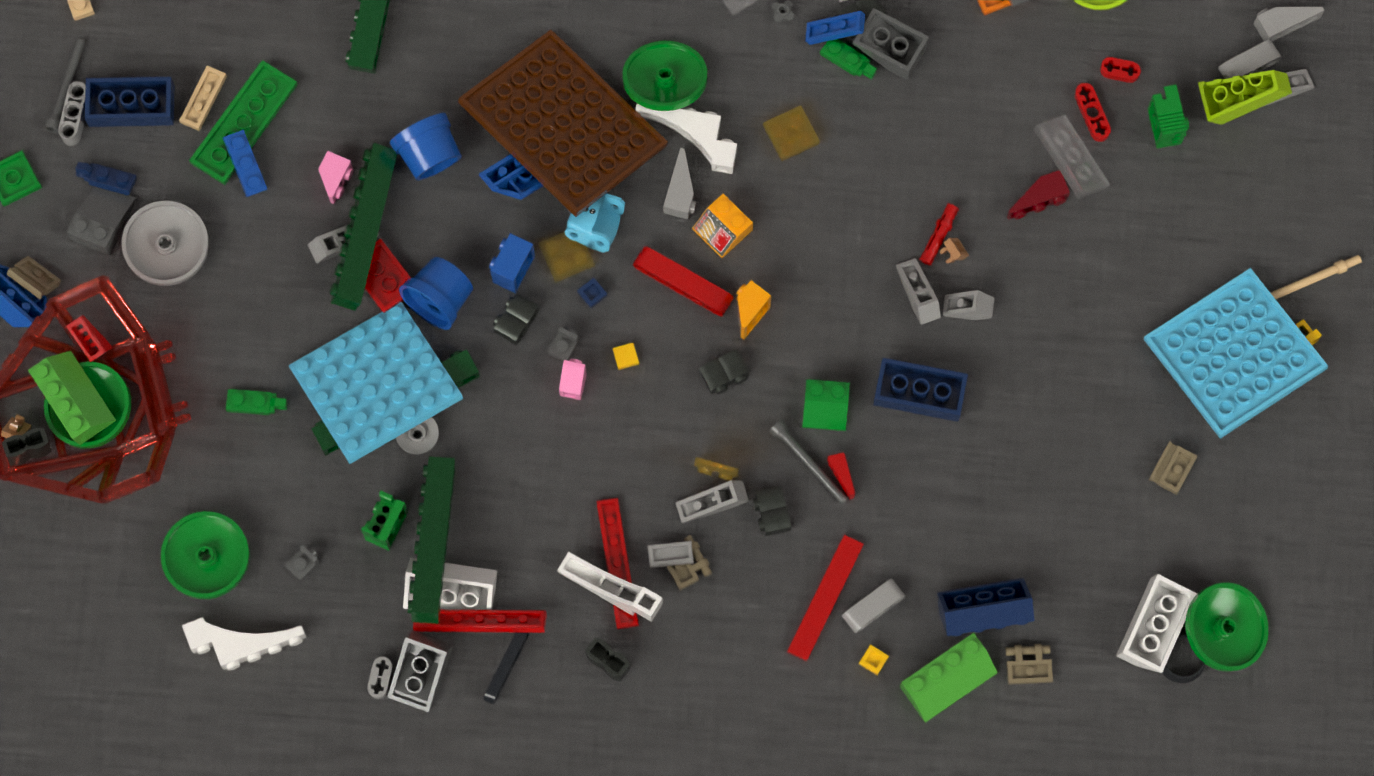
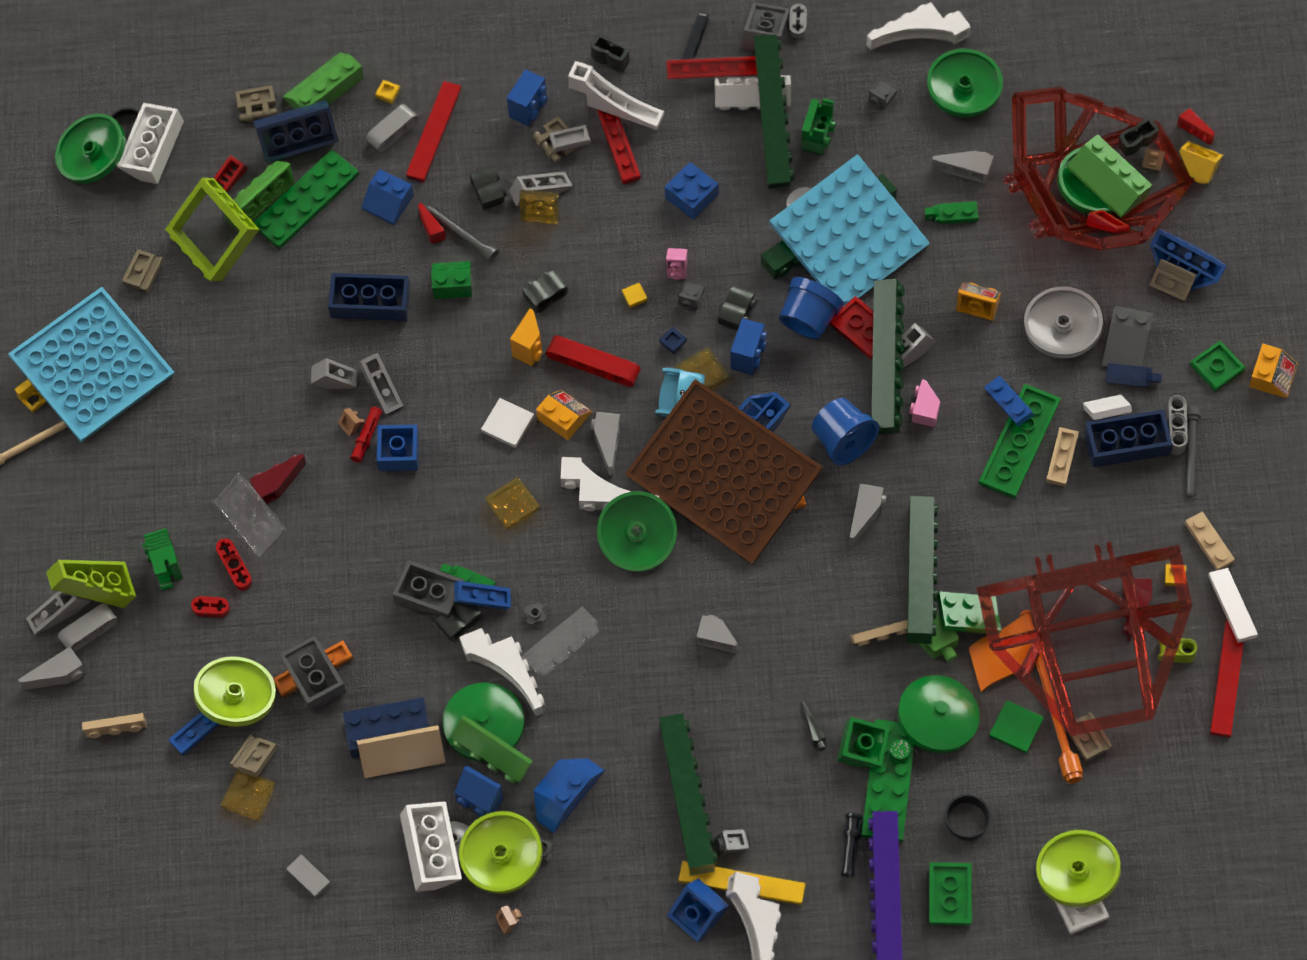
camera: 175 degrees right, 10 degrees down
(142, 138) = (1107, 407): none -> white tile
(223, 454) = (968, 165): none -> light grey slope
(250, 284) = (978, 301): none -> light orange slope
(420, 69) = (867, 508): none -> light grey slope
(541, 468) = (691, 190): none -> blue brick
(712, 611) = (527, 98): none -> blue brick
(785, 227) = (507, 423): none -> white tile
(887, 517) = (387, 196): none -> blue slope
(906, 207) = (397, 447): none -> blue brick
(981, 533) = (306, 199): none -> green plate
(1035, 538) = (264, 190): none -> bright green slope
(1058, 586) = (242, 168): none -> red slope
(1074, 500) = (231, 210): none -> lime window

